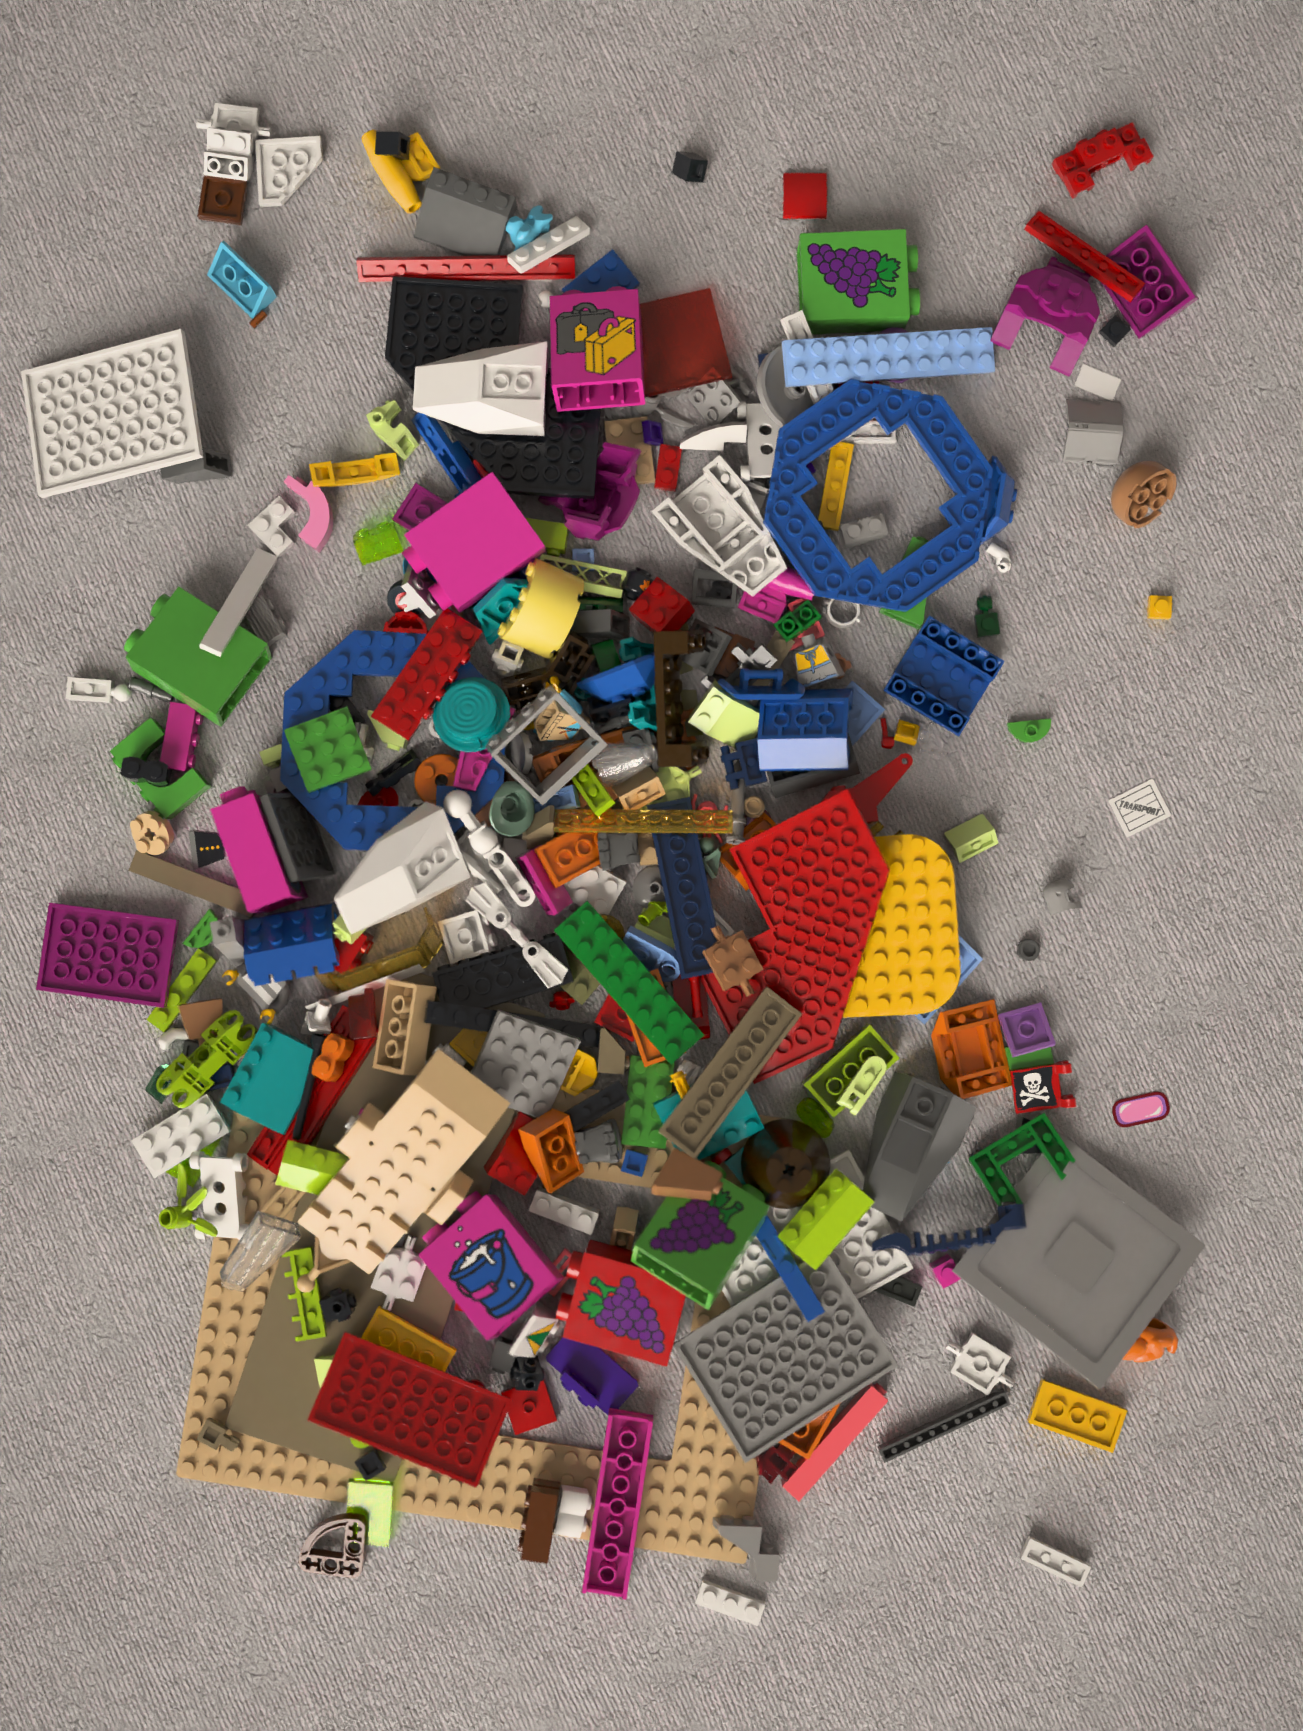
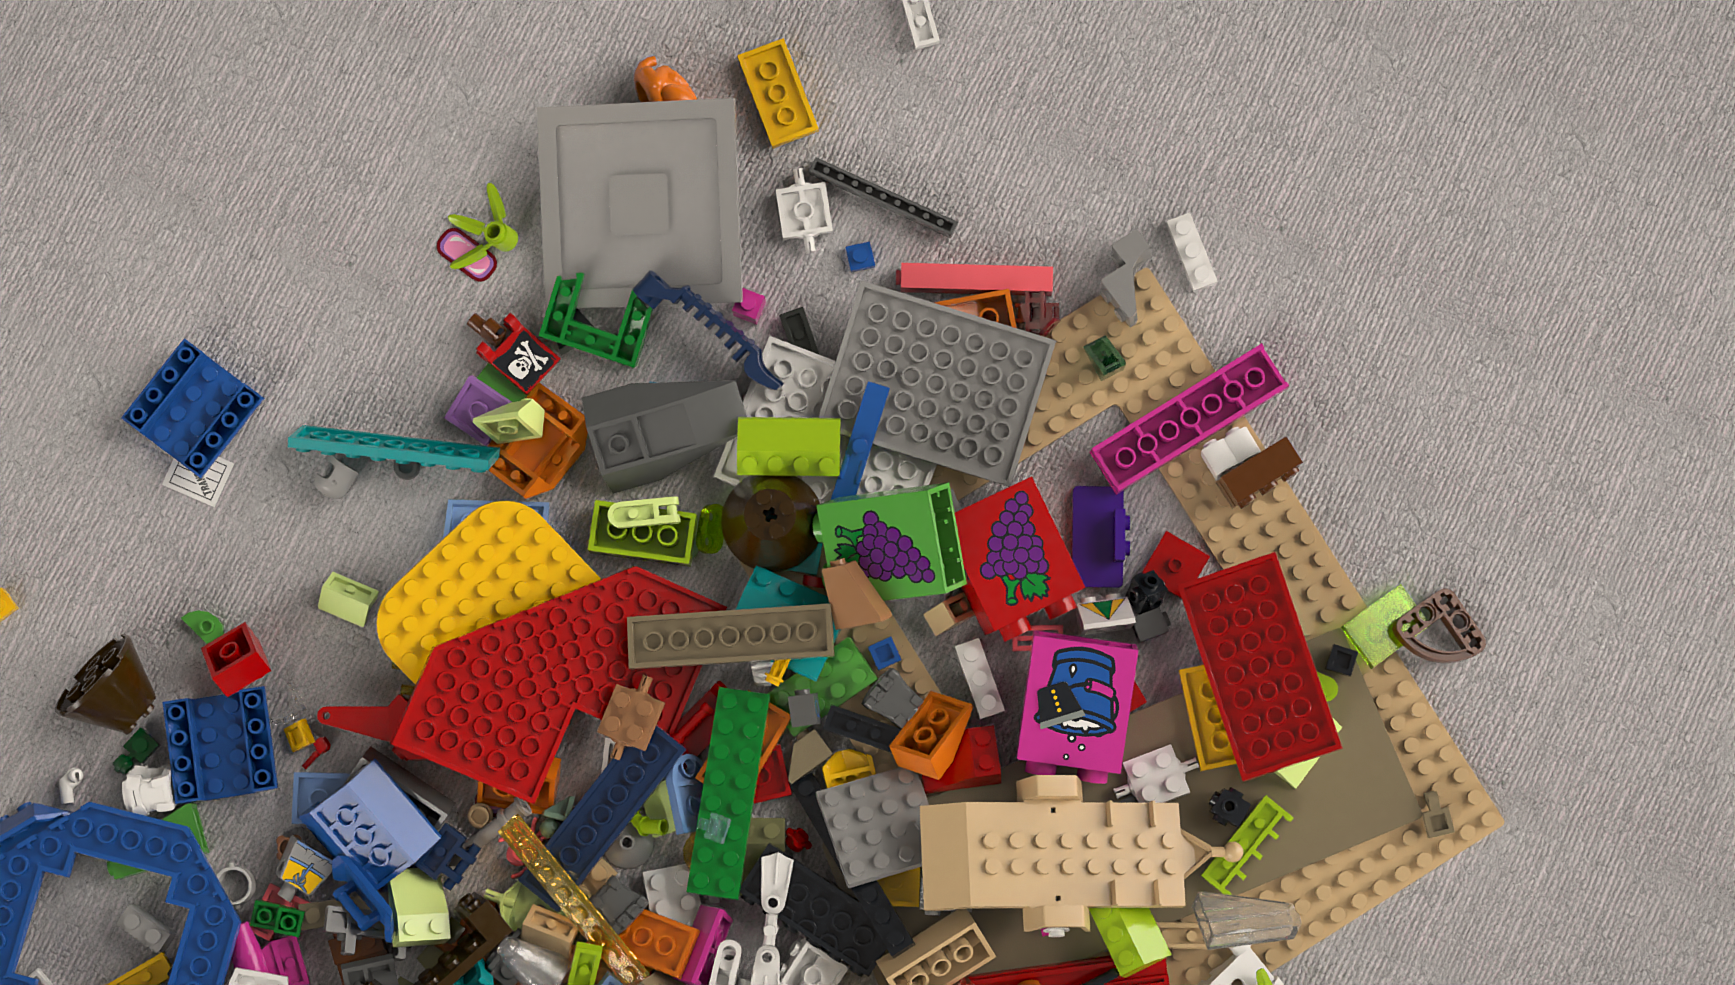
camera: 130 degrees left, 5 degrees down
(497, 1253) = (1057, 705): none -> black sticker
(611, 955) = (715, 827): none -> clear light blue tile
(642, 1079) = (804, 708): none -> dark grey brick
(706, 1482) = (1104, 358): none -> clear green slope
(916, 1374) = (860, 256): none -> blue plate
(953, 605) = (148, 790): none -> white piece
(992, 732) = (236, 659): none -> red brick
(999, 1046) = (513, 421): none -> yellowish green slope
(1042, 633) = (110, 689): none -> dark brown cone
(1048, 953) = (400, 448): none -> teal plate
(1075, 1082) = (489, 329): none -> reddish brown piece
(1139, 1143) = (496, 232): none -> lime plant
(1188, 840) = (192, 408): none -> blue slope

